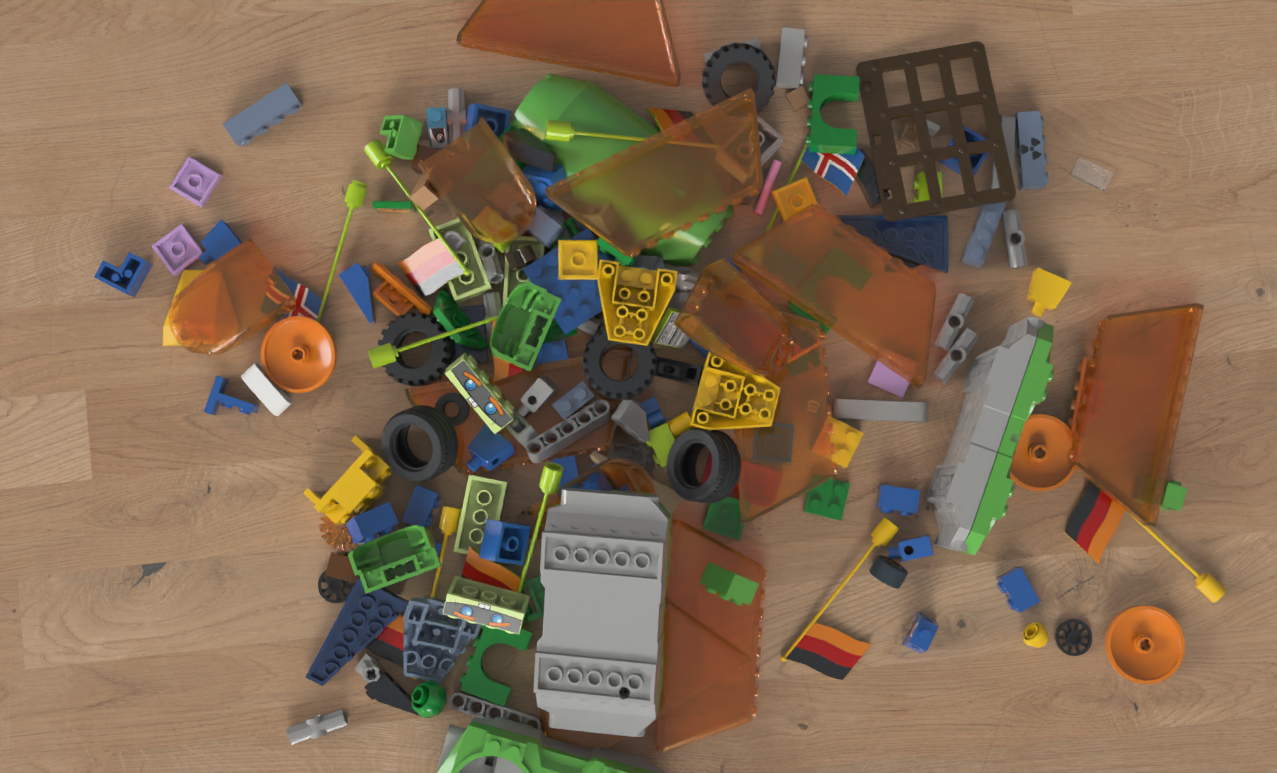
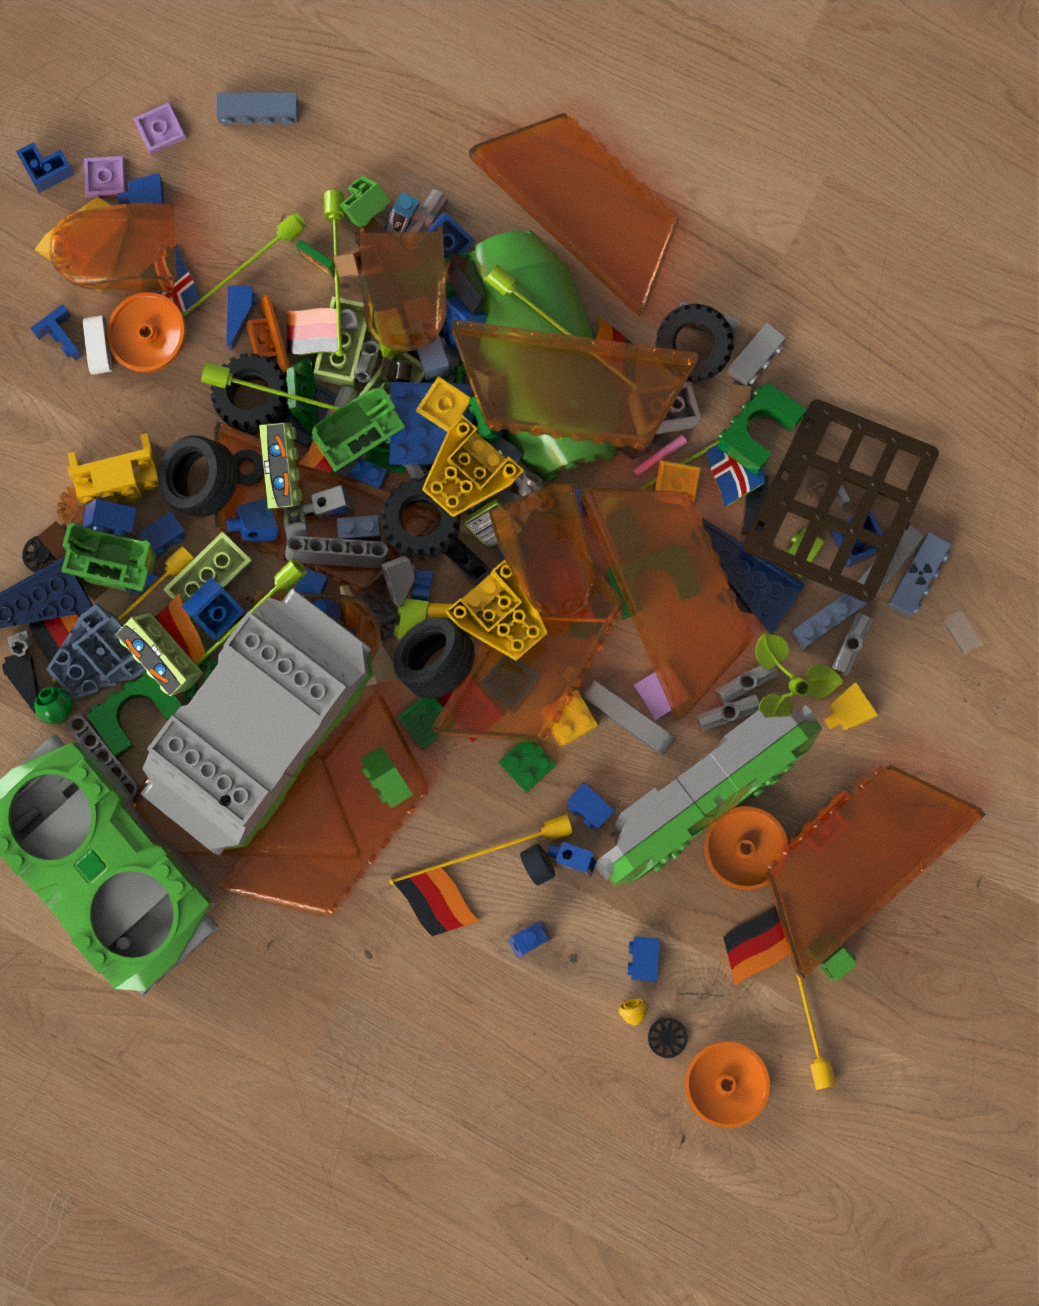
camera: 30 degrees right, 5 degrees down
(1009, 286) = (820, 682): none -> lime plant

